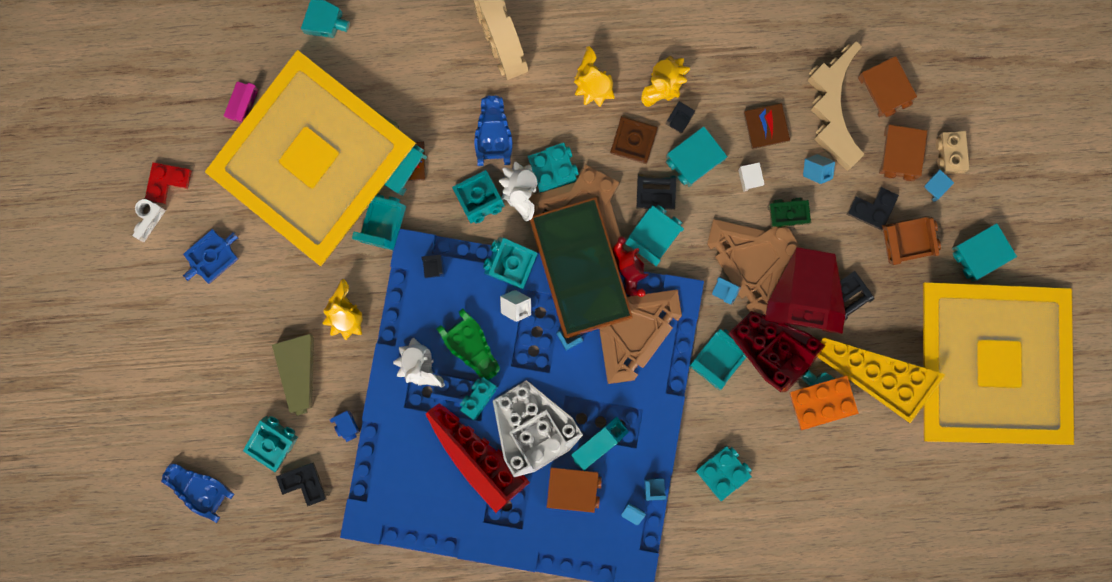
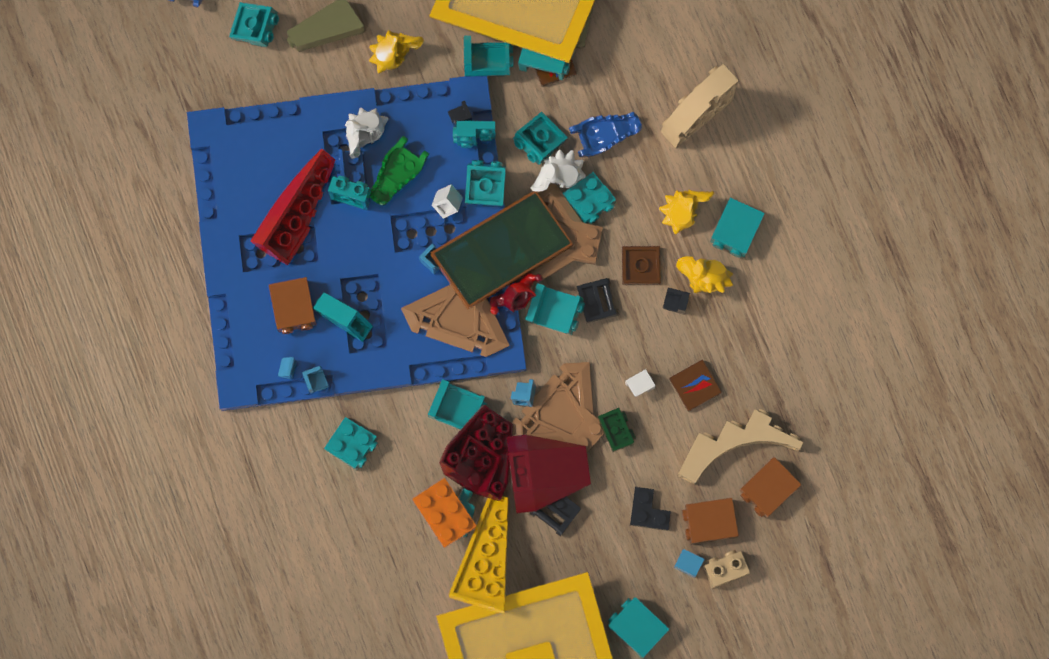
camera: 70 degrees right, 5 degrees down
(306, 479) = (230, 66): black plate -> none
(345, 426) = (290, 86): blue brick -> none
(456, 264) = (468, 131): none -> teal plate
(532, 429) = (336, 251): white wedge -> none
(627, 36) = (736, 228): none -> teal panel
(695, 157) = (642, 326): teal panel -> none
(819, 168) = (669, 446): dark azure panel -> none
(911, 239) = (628, 553): dark orange panel -> none

